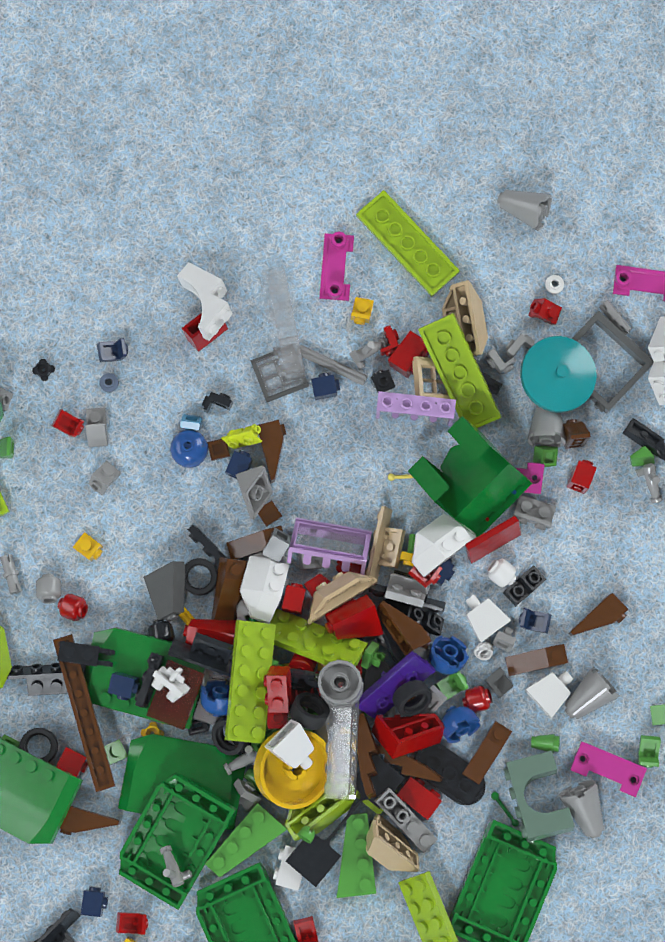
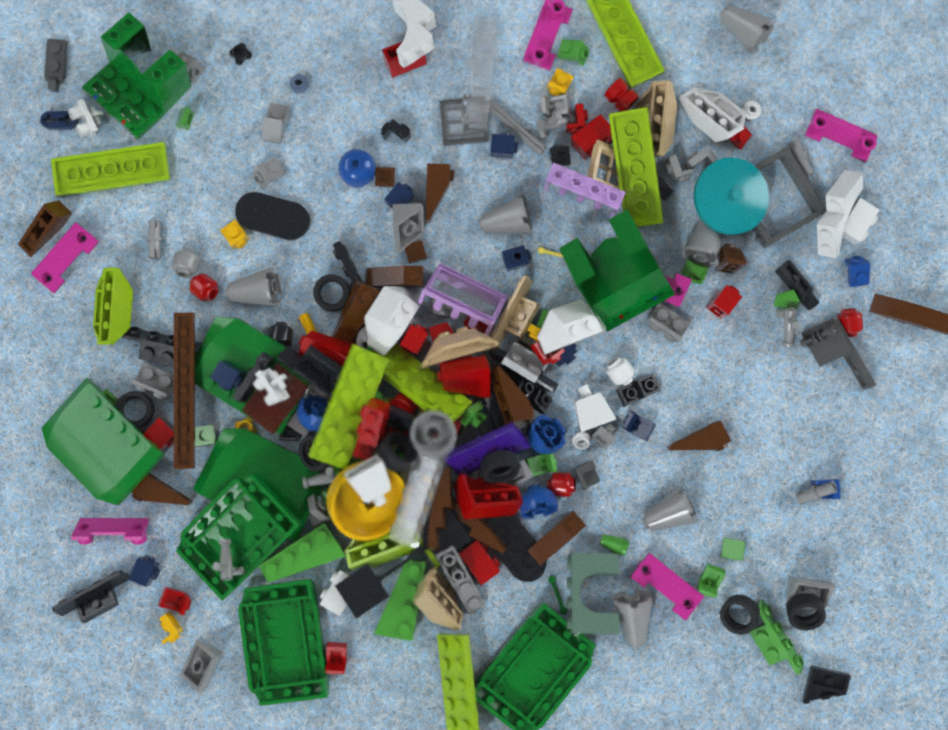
camera: 10 degrees right, 5 degrees up
(52, 712) = (155, 380): none -> light grey bracket
(68, 423) = (248, 111): red bracket -> none
(68, 863) = (132, 529): none -> dark pink brick
(83, 654) = (198, 334): black hinge -> none
(112, 350) = (310, 53): dark blue bracket -> none
(120, 518) = (272, 216): none -> black tile
(124, 594) = (257, 288): none -> light grey cone
(167, 590) = (297, 296): dark grey slope -> none
(191, 422) = (365, 143): dark azure plate -> none
(241, 437) = (410, 171): neon yellow hinge -> none
(277, 545) = (412, 283): panel -> none
(306, 835) = (361, 567): bright green hinge -> none
(350, 456) = (508, 218): none -> light grey cone
(363, 334) = (555, 104): none -> light grey bracket
(366, 276) = (573, 50): none -> bright green bracket
(369, 492) = (516, 258): none -> dark blue brick
(425, 306) = (621, 95): none -> red wheel
(493, 539) = (621, 337): red tile -> none
(518, 298) = (713, 113): none -> white wedge
(536, 660) = (629, 463): slope -> none
(550, 692) = (633, 498): white torso -> none

